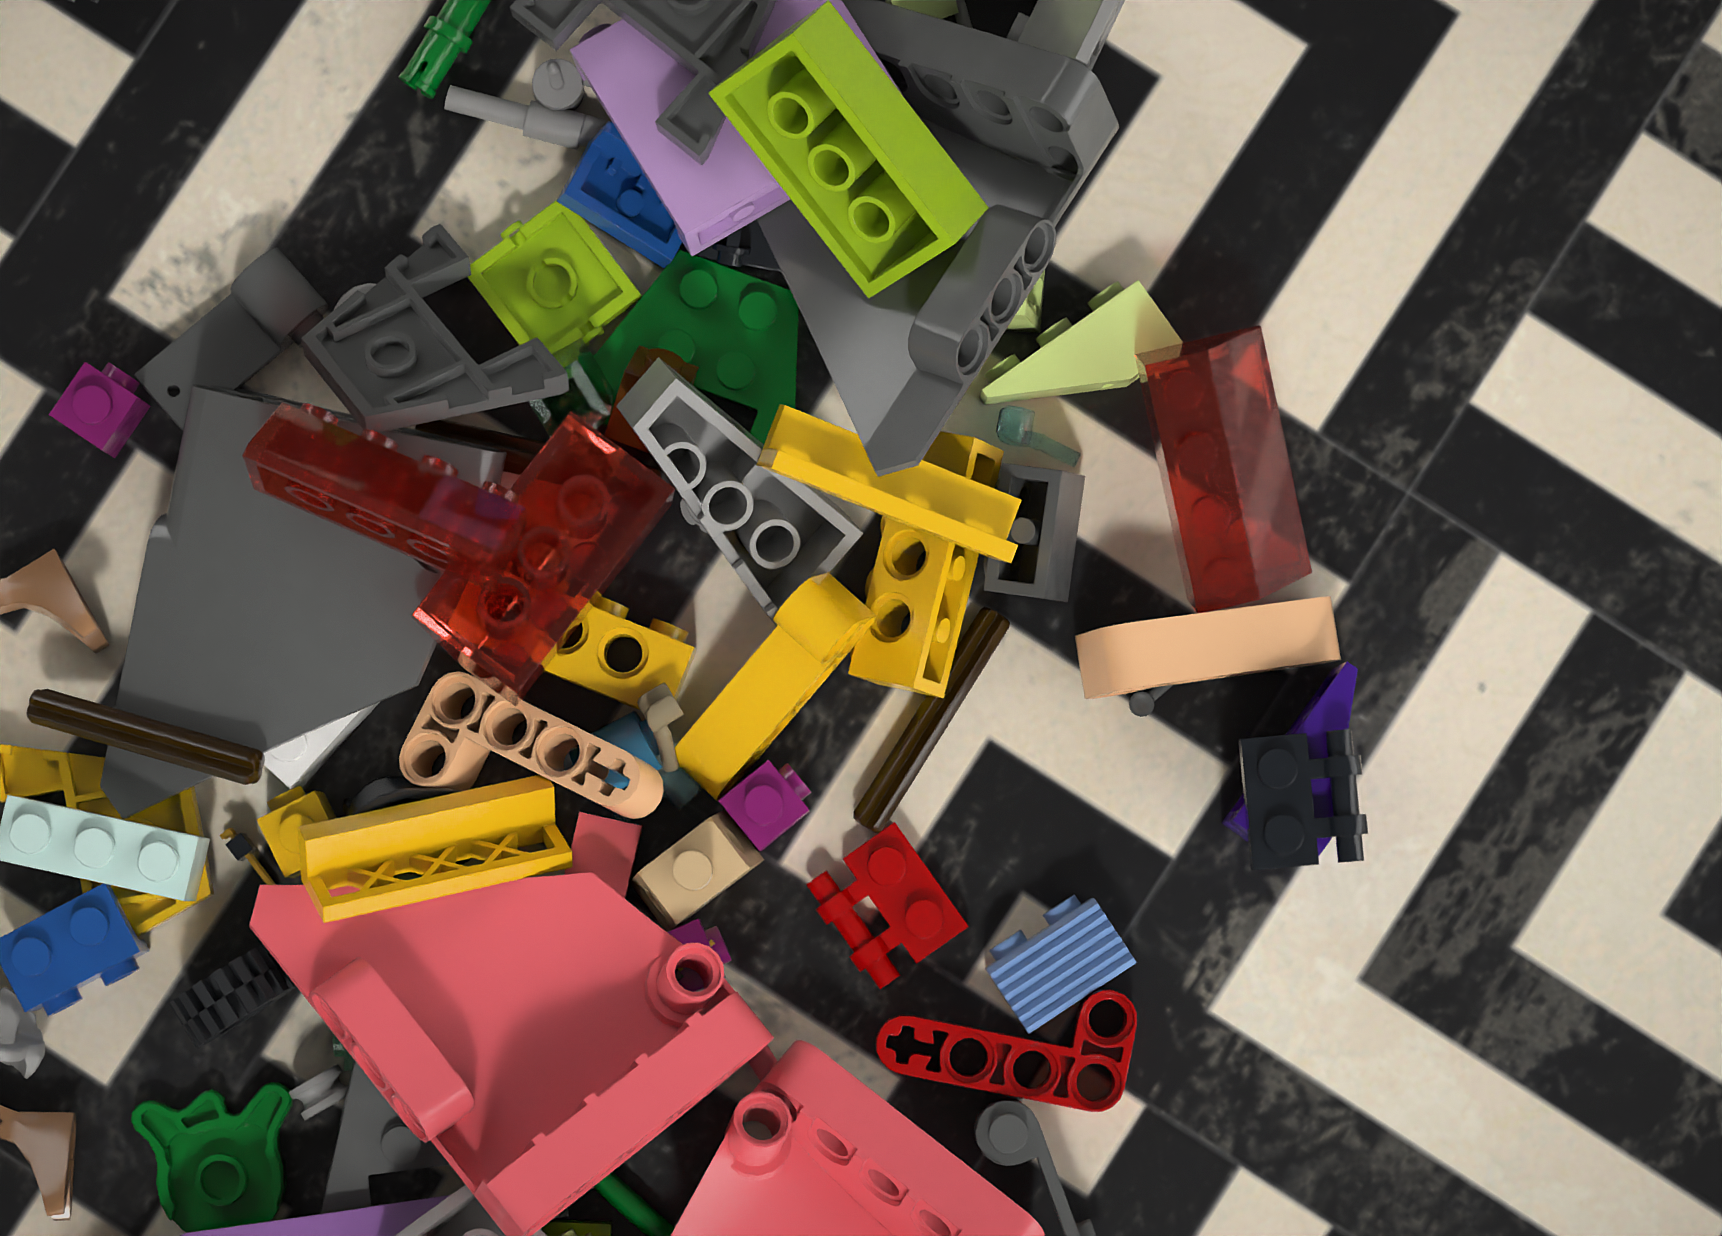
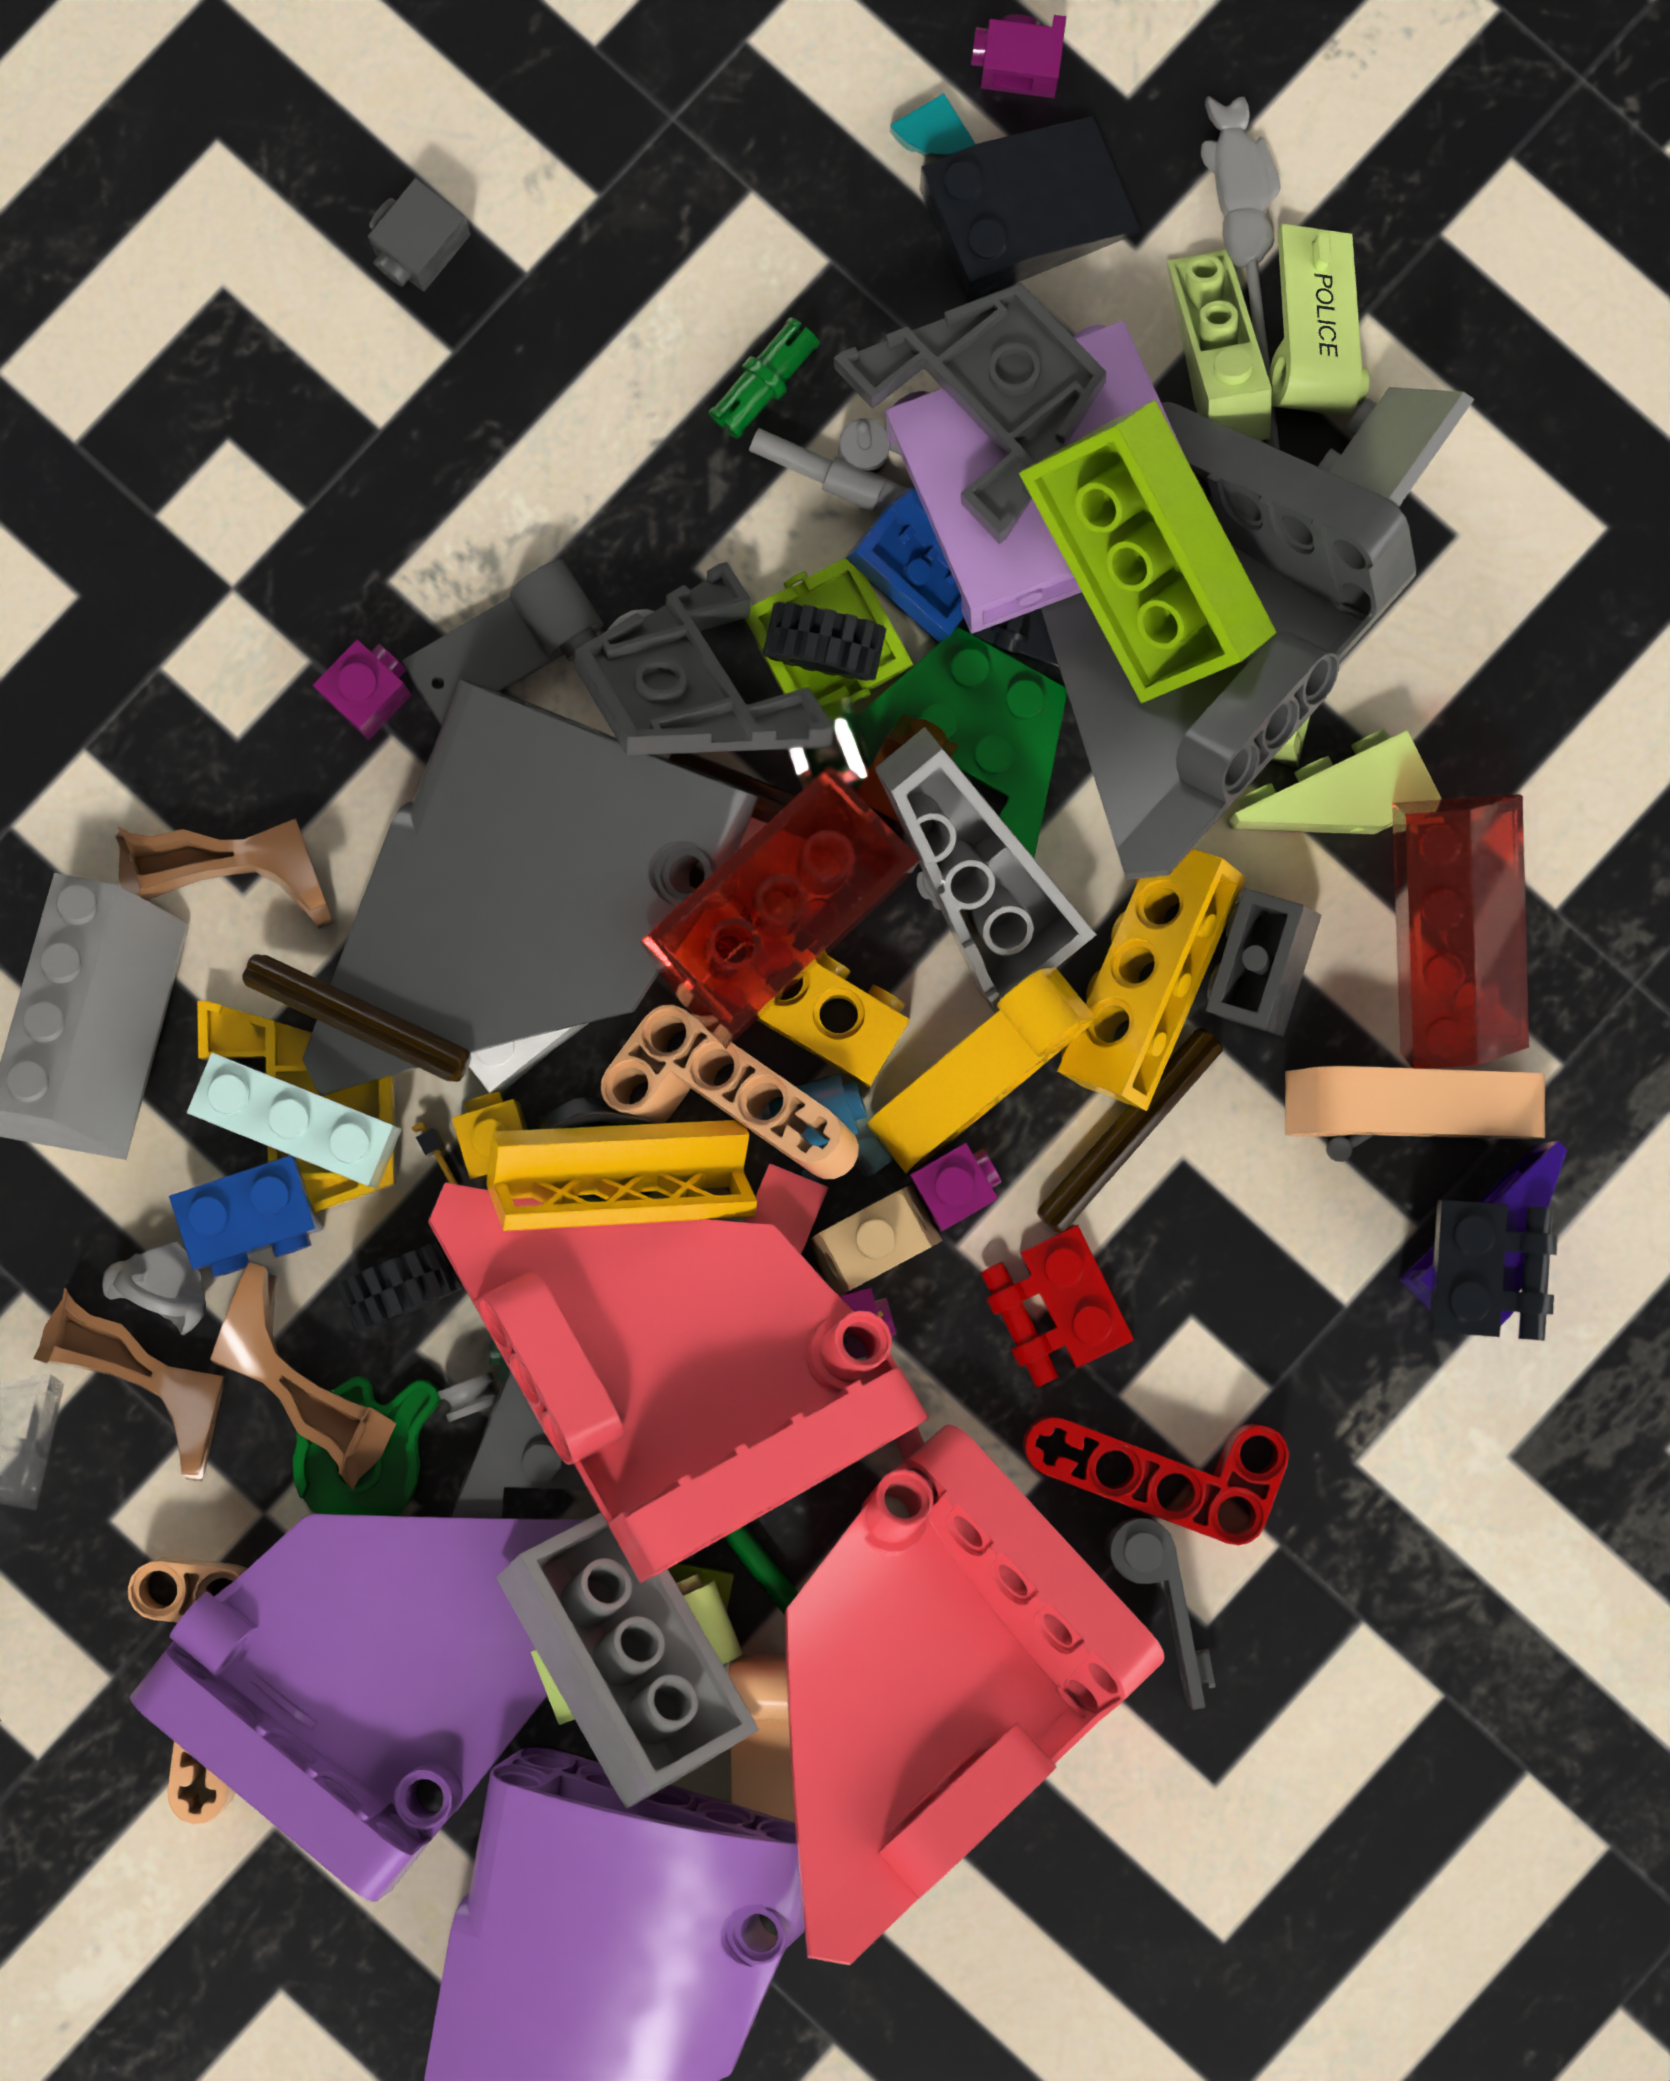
camera: 10 degrees right, 0 degrees up
(91, 1078) = (246, 1345): none -> medium nougat animal
(385, 494) = (636, 817): clear red slope -> none
(547, 288) = (824, 641): none -> black tyre
(660, 710) = (866, 1076): dark tan hand -> none
(917, 496) = (1158, 907): yellow fence -> none
(1015, 429) = (1259, 858): clear light blue hand -> none
(1058, 963) = (1218, 1391): medium blue brick -> none

